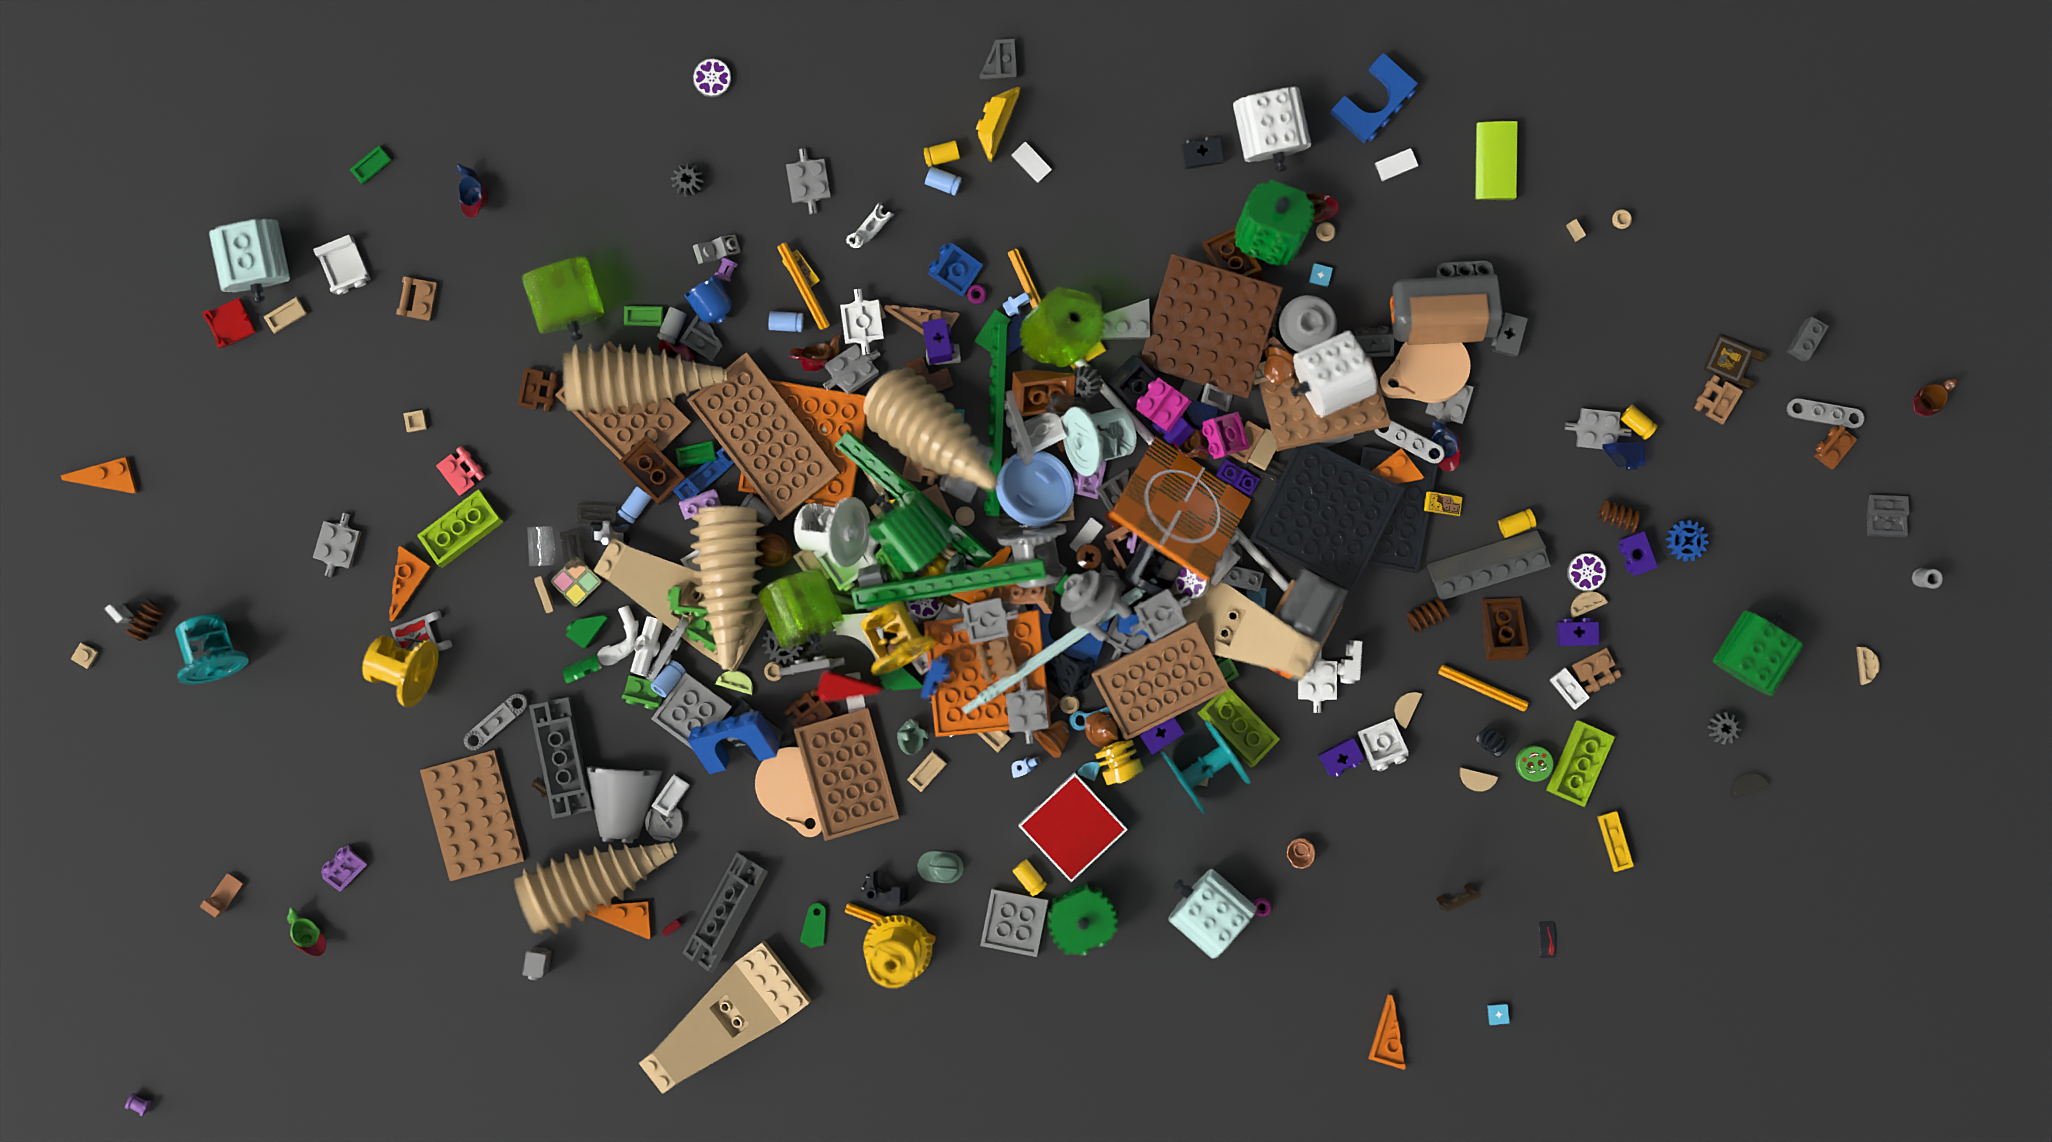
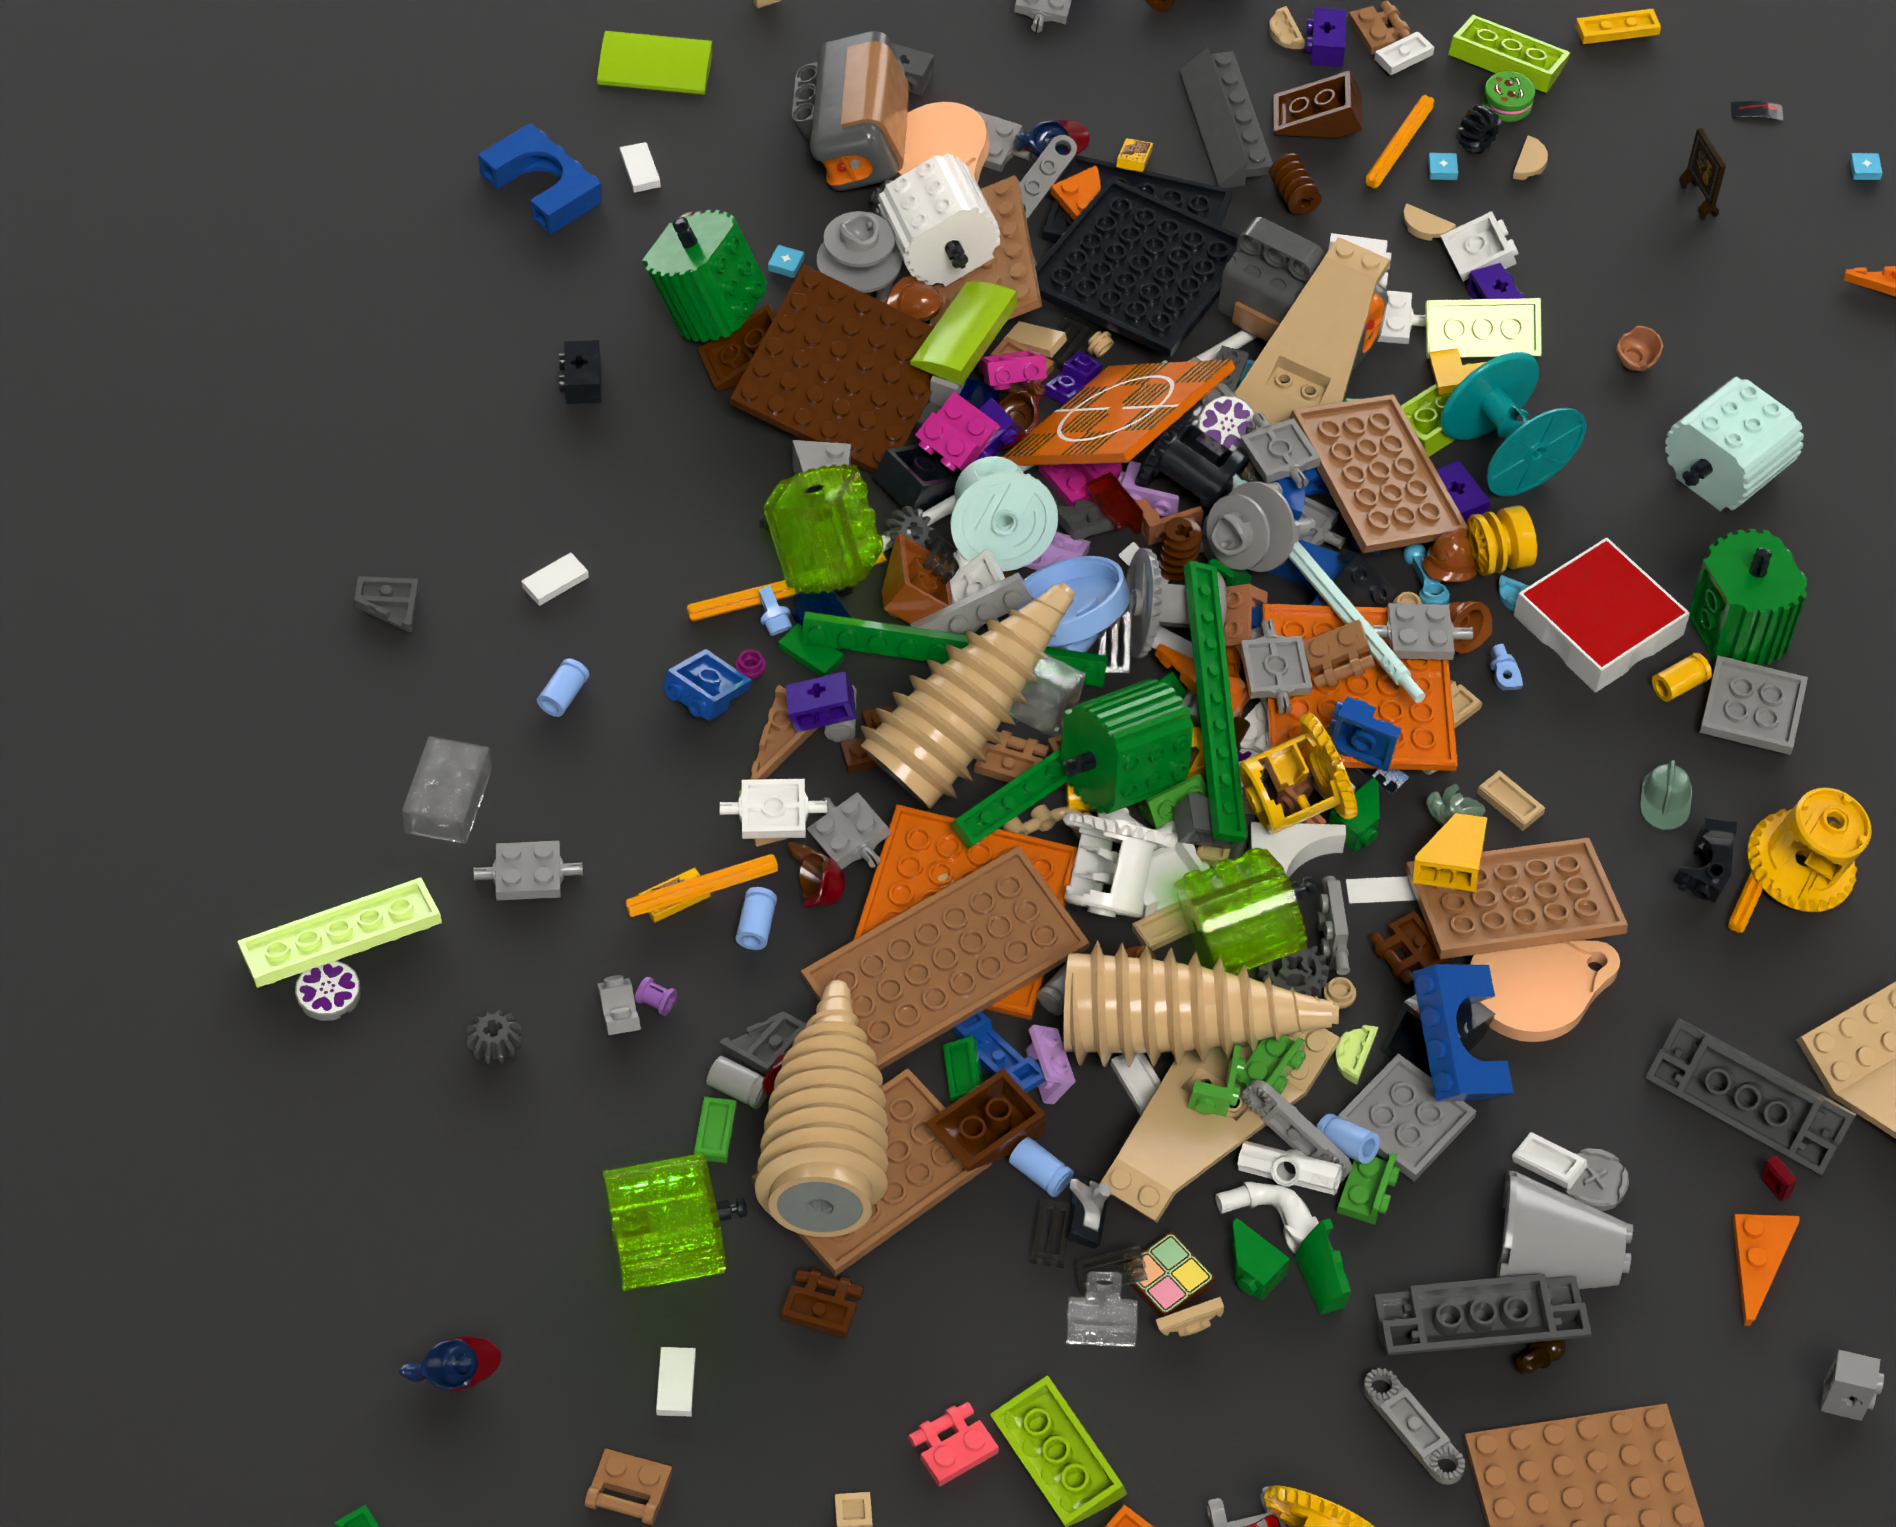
camera: 85 degrees left, 35 degrees down
(482, 315) = (676, 1381): none -> white tile
(583, 883) = (1710, 1289): tan cone -> none
(710, 300) = (704, 1015): blue cylinder -> none
(747, 77) = (339, 932): none -> yellowish green plate
(814, 927) = (1769, 976): green piece -> none
(840, 686) = (1375, 864): red slope -> none
(856, 122) = (447, 789): none -> clear brick
(869, 737) = (1453, 854): none -> yellow slope
(870, 227) = (617, 787): white piece -> none
(941, 153) = (519, 685): yellow piece -> none
(996, 119) = (485, 609): yellow wedge -> none
(1245, 401) = (966, 331): none -> lime slope
(1261, 729) = (1449, 369): none -> yellow tile
(1266, 491) = (1100, 343): none -> tan plate
(1272, 125) = (560, 273): white piece -> none
(1306, 748) = (1484, 326): none -> yellowish green tile
(1463, 718) = (1443, 166): none -> medium azure tile
(1517, 523) = (1168, 83): yellow piece -> none
(1586, 572) = (1242, 25): tile -> none

